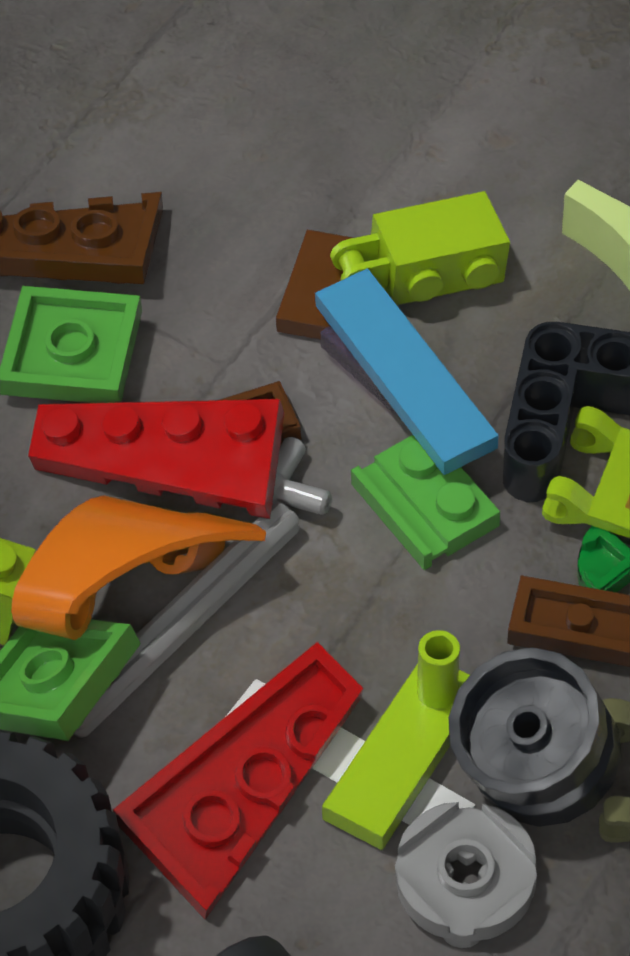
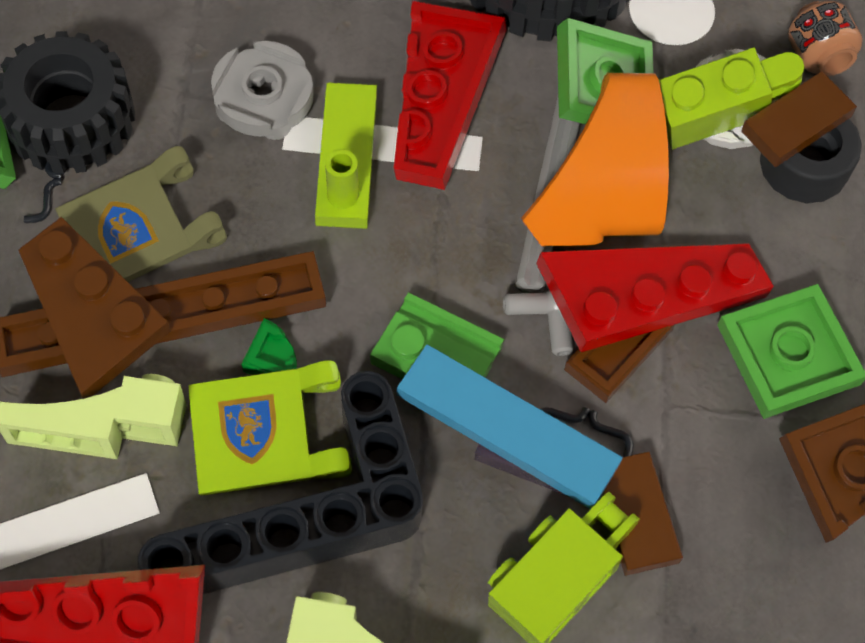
camera: 145 degrees right, 10 degrees up
(308, 389) = (595, 424): none -> black piece
(535, 736) = (250, 161): black wheel -> none

